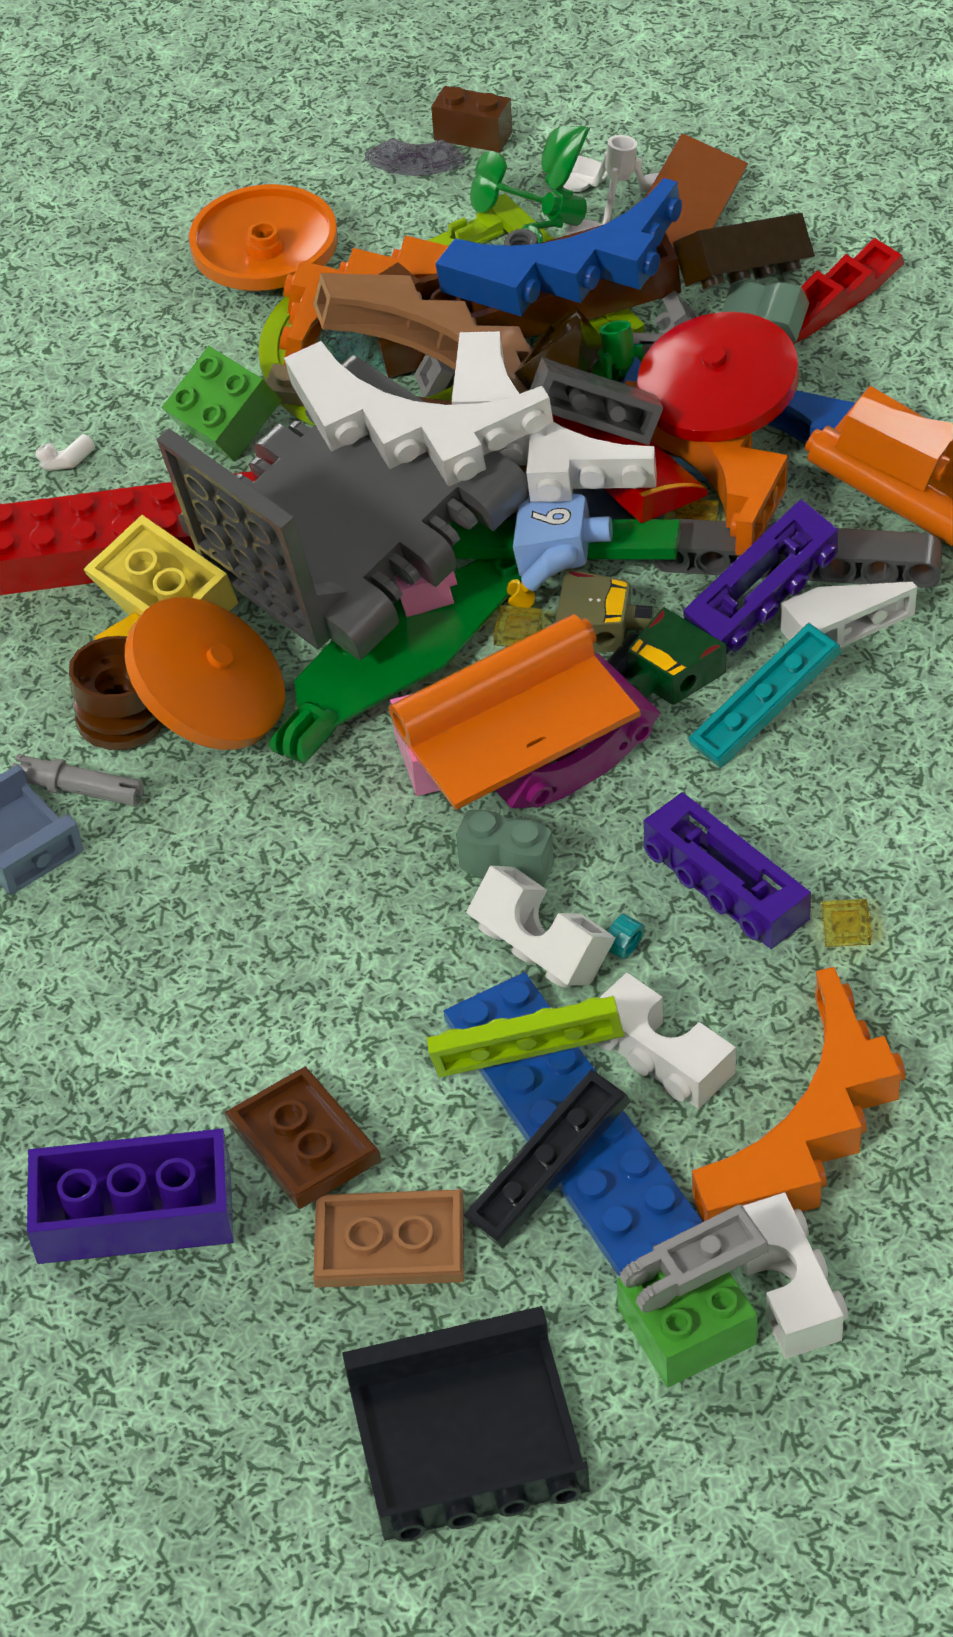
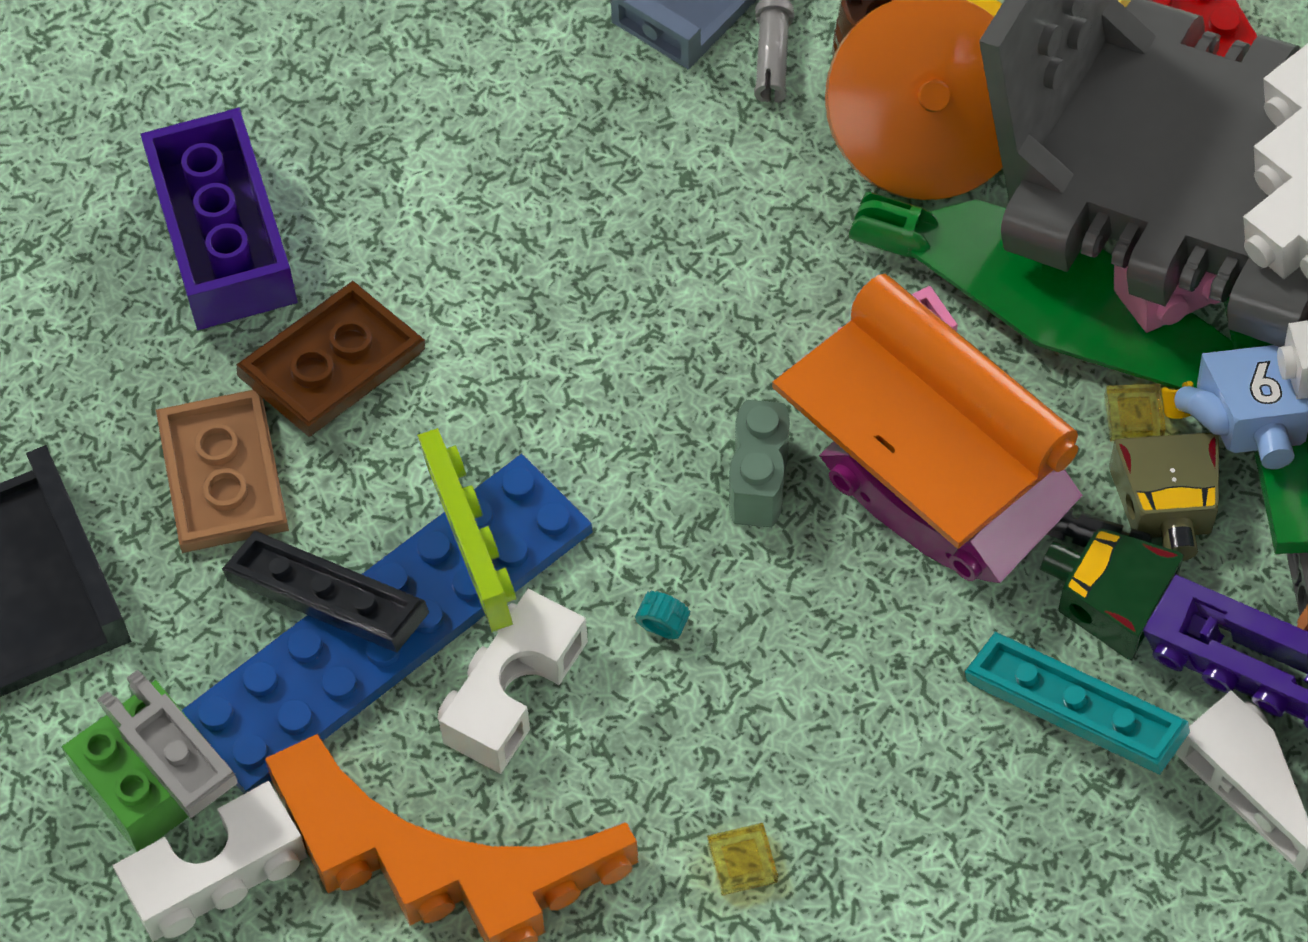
camera: 75 degrees right, 10 degrees up
(509, 909) = (621, 551): white arch -> none
(726, 871) = (826, 636): dark purple brick -> none

